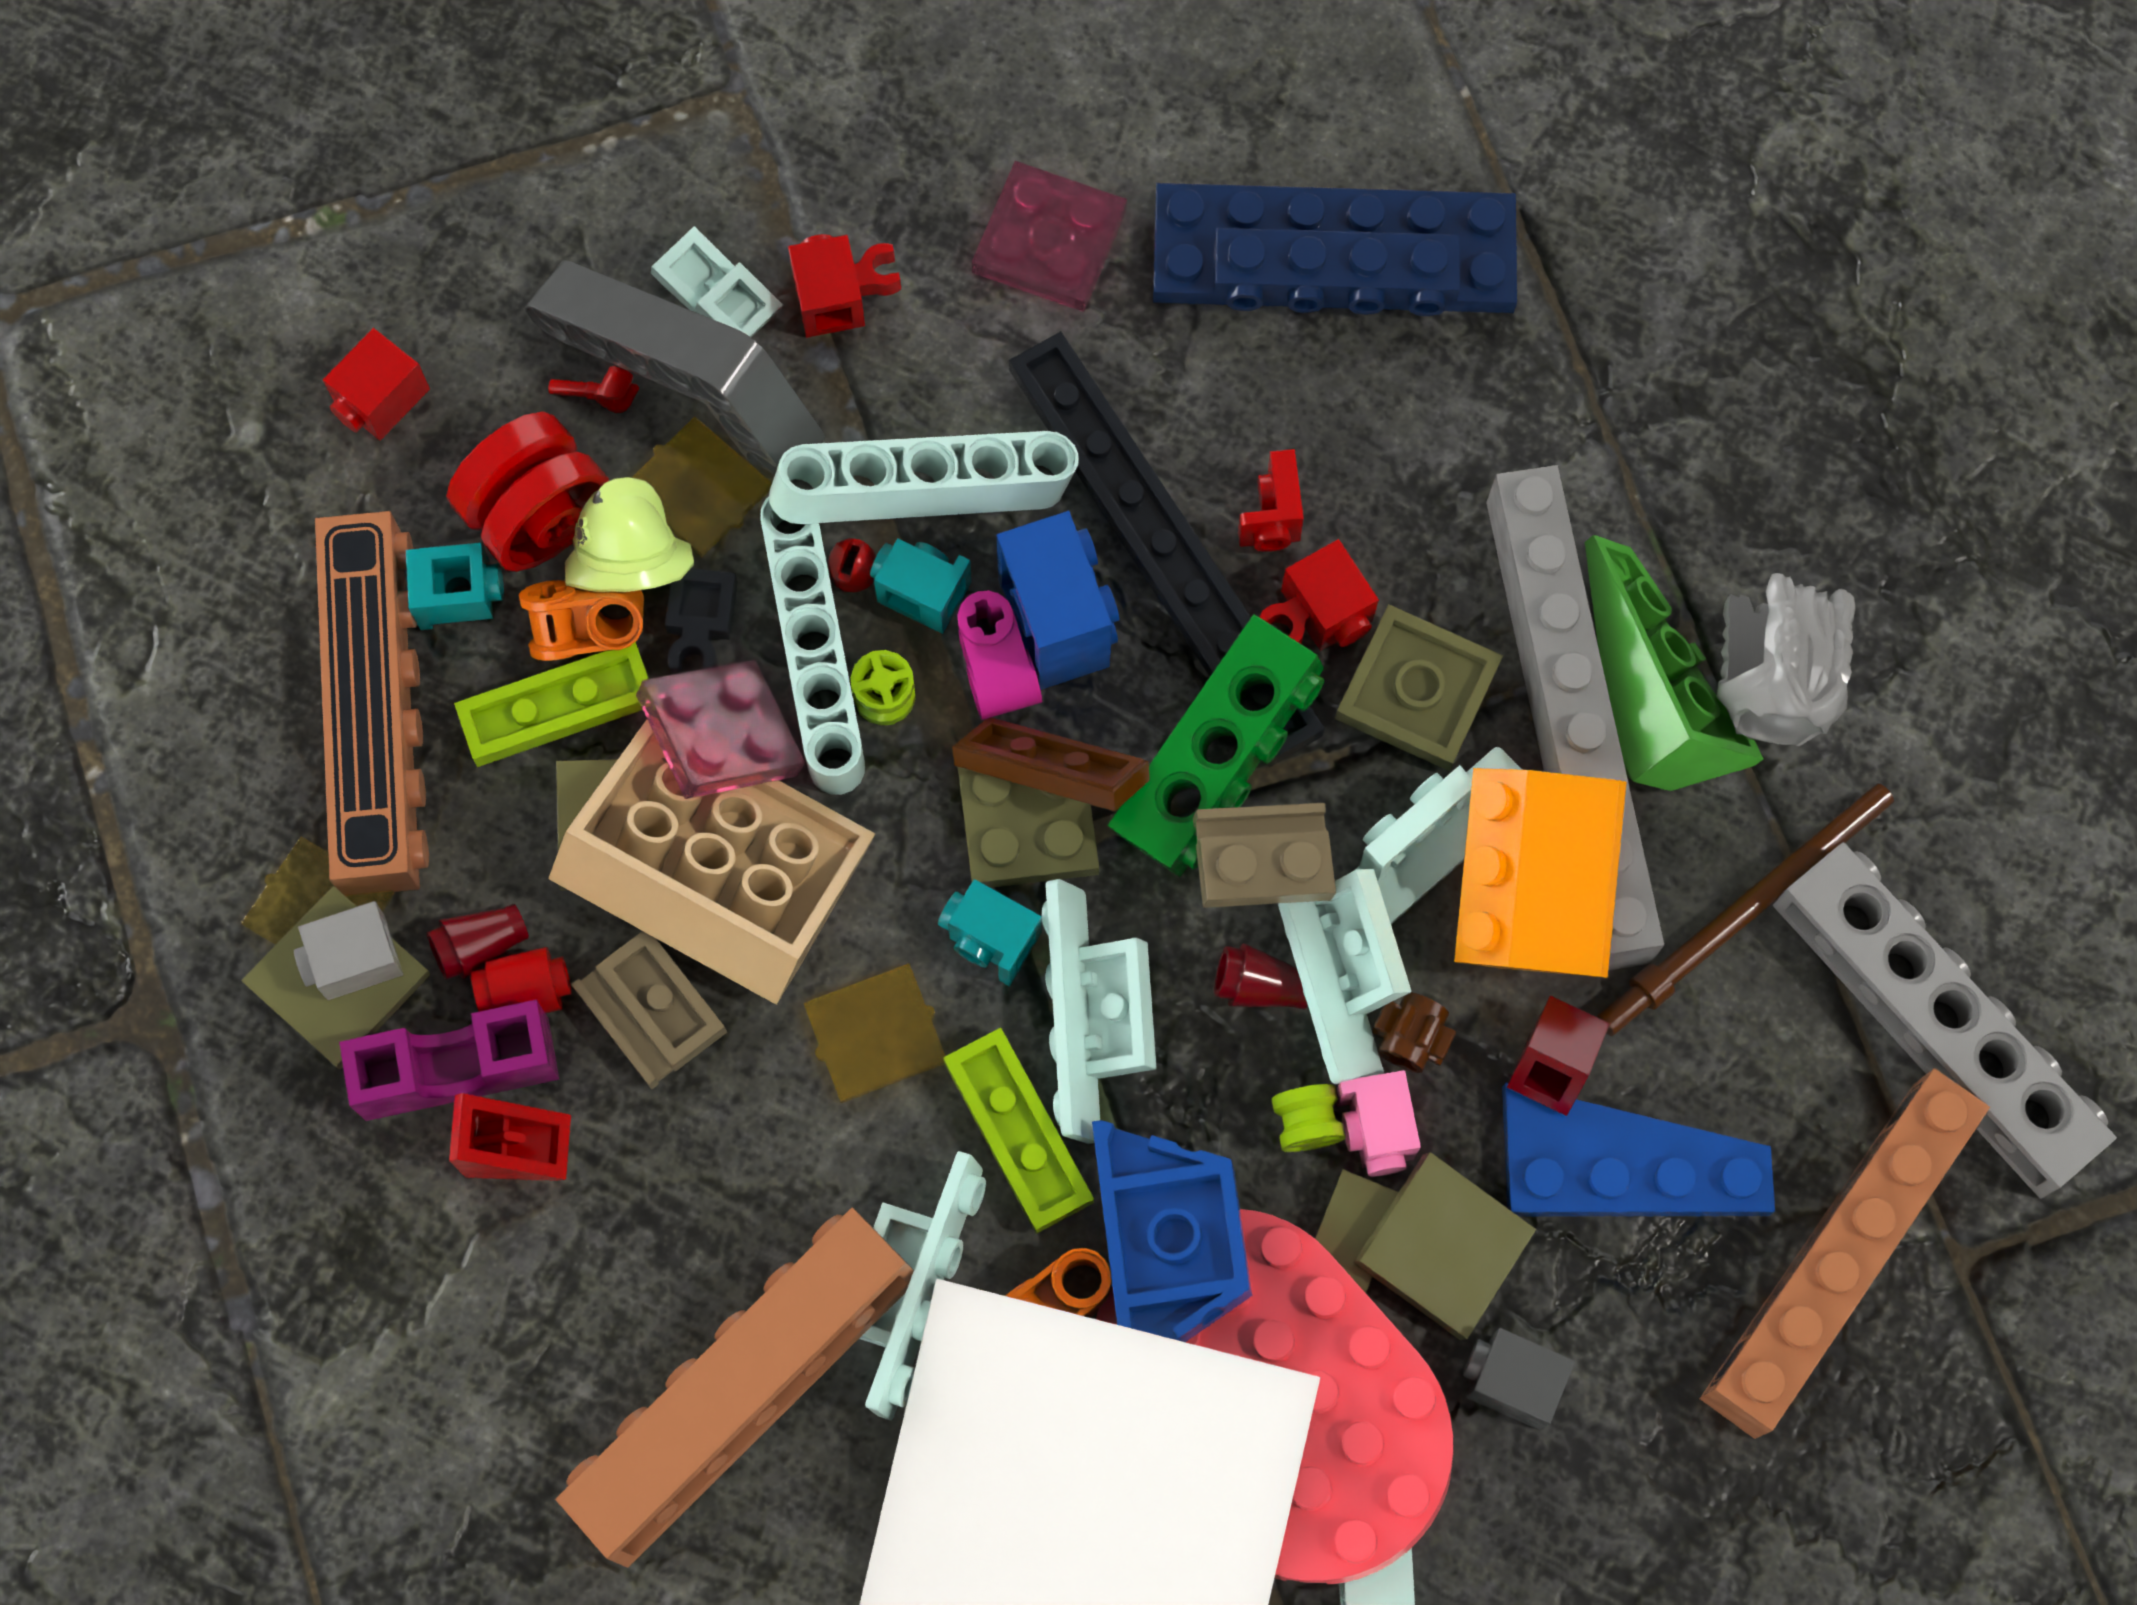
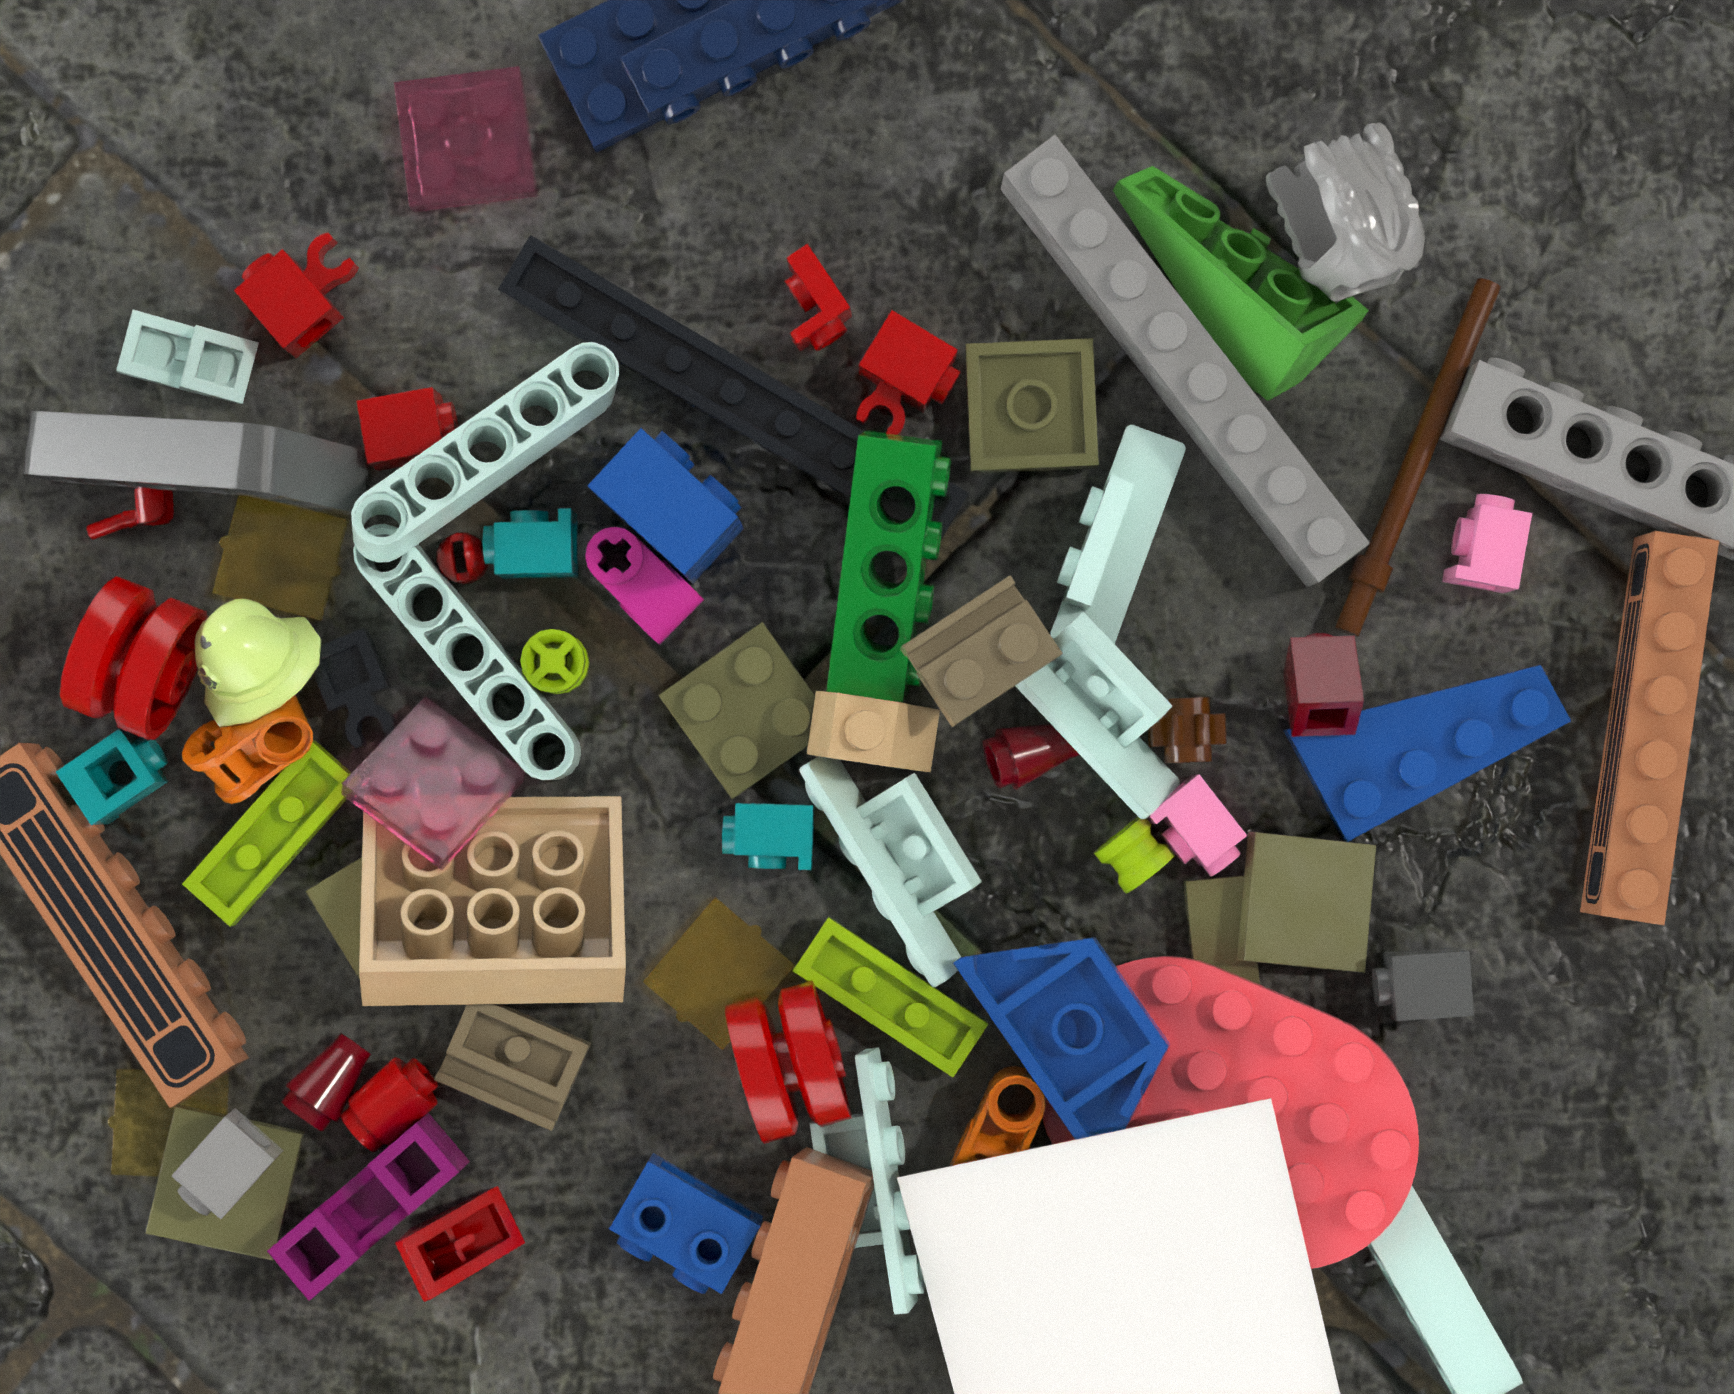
camera: 25 degrees left, 15 degrees up
(718, 1232) = (685, 1226): none -> blue brick
(865, 417) = (403, 425): none -> red brick
(885, 1125) = (782, 1063): none -> red wheel
(1051, 763) = (747, 661): reddish brown tile -> none
(1132, 885) = (873, 731): none -> tan slope
(1540, 872) = (1230, 536): light orange slope -> none
(1773, 1016) = (1489, 545): none -> bright pink brick

